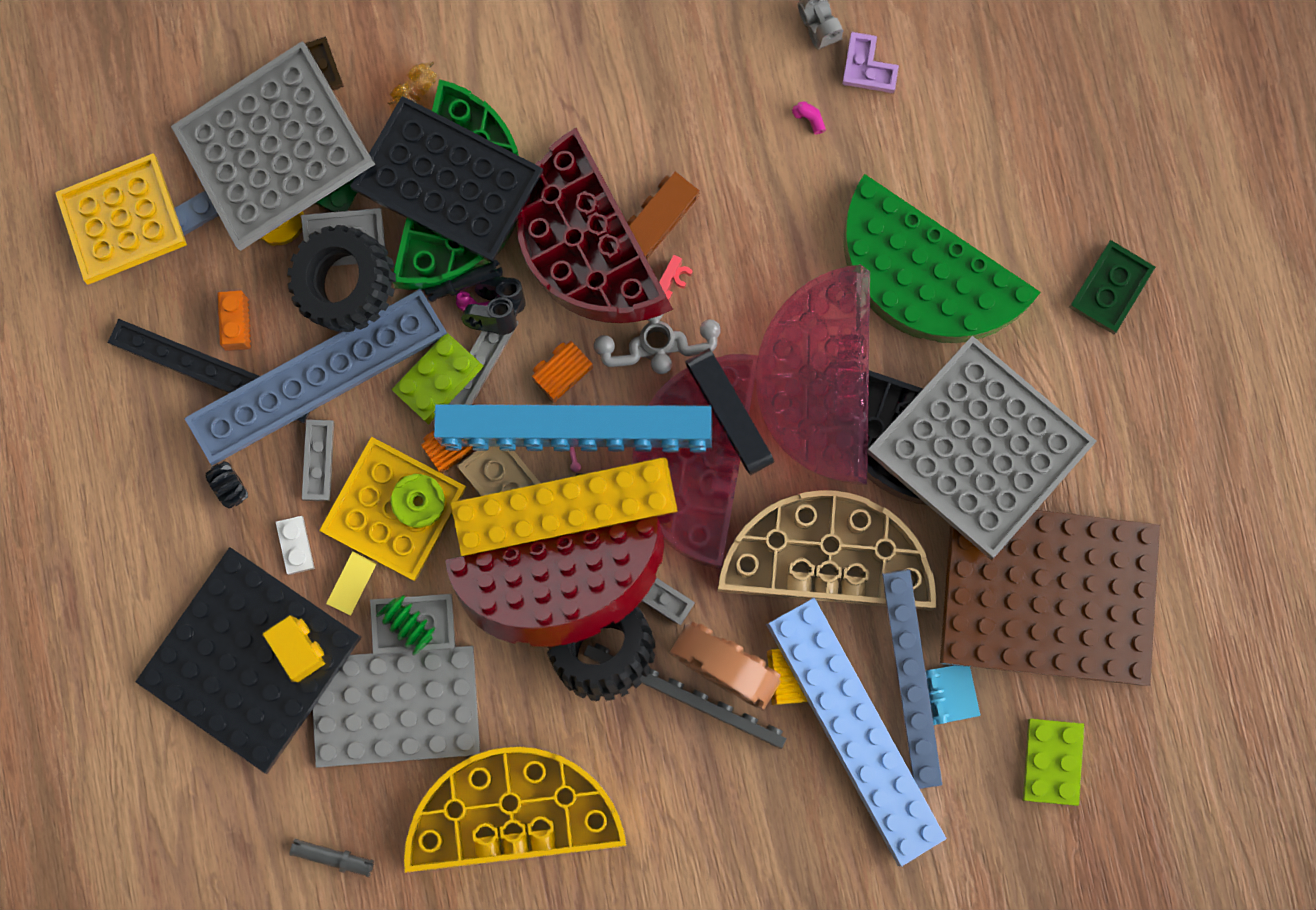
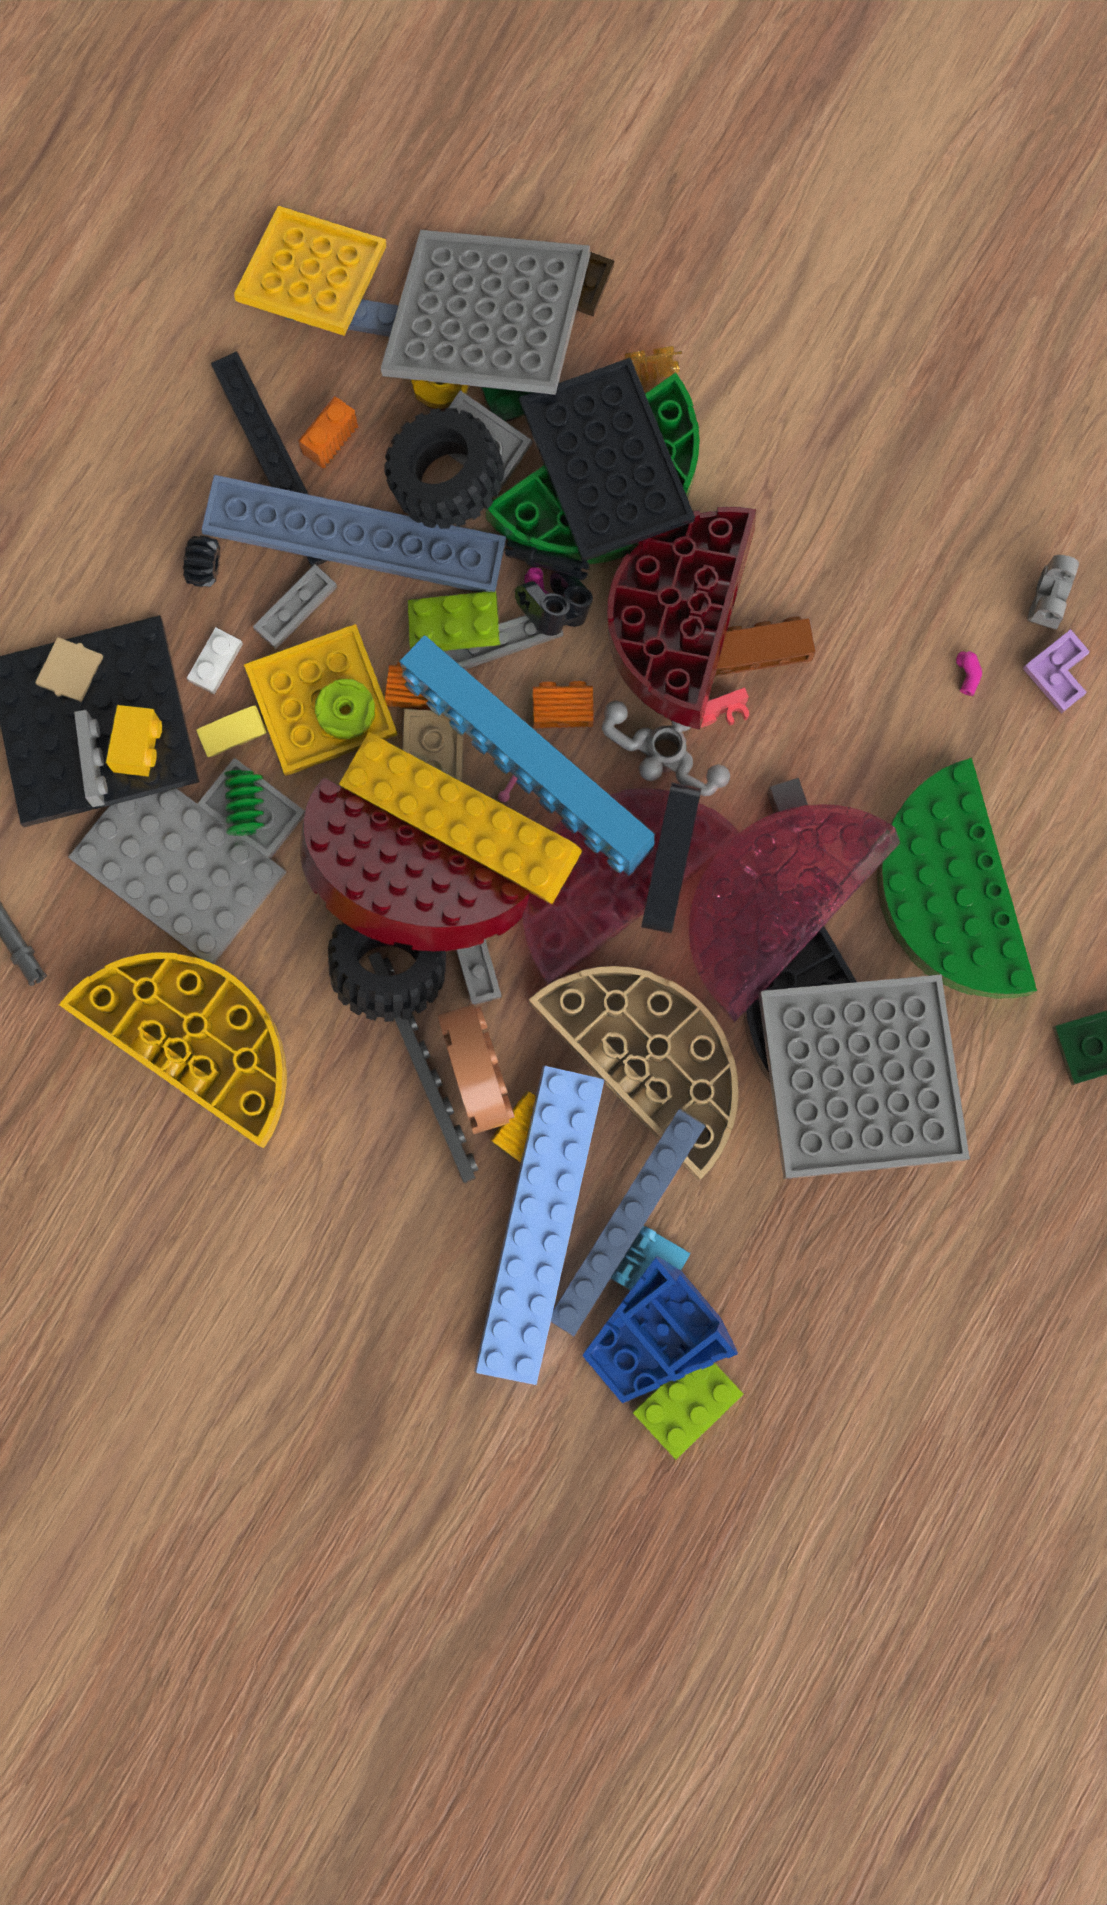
camera: 45 degrees right, 0 degrees up
(201, 638) = (69, 669): none -> tan piece
(276, 685) = (90, 758): none -> light grey plate
(766, 304) = (786, 795): none -> dark grey brick
(997, 735) = (658, 1334): none -> blue wedge
(1056, 600) = (813, 1266): reddish brown plate -> none

